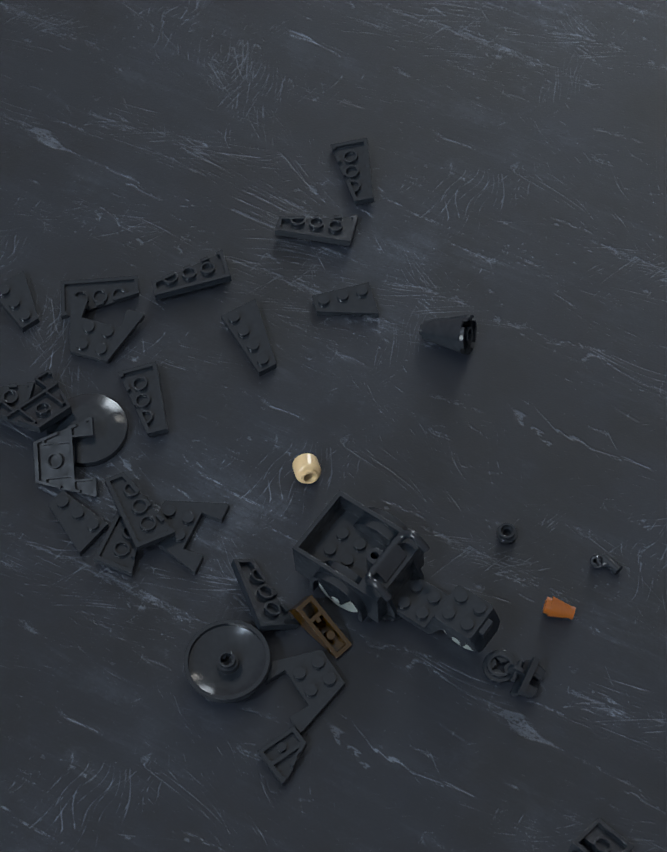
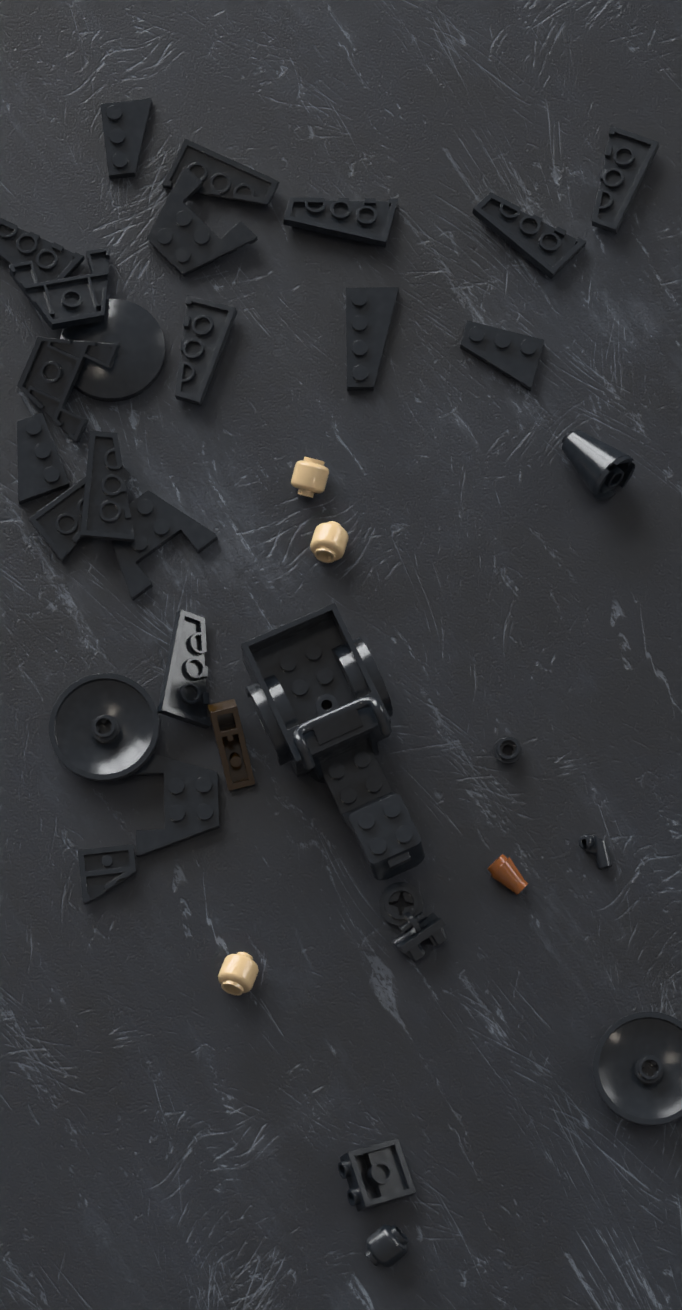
camera: 25 degrees right, 15 degrees up
(268, 436) = (309, 477): none -> tan head
(419, 770) = (238, 973): none -> tan head

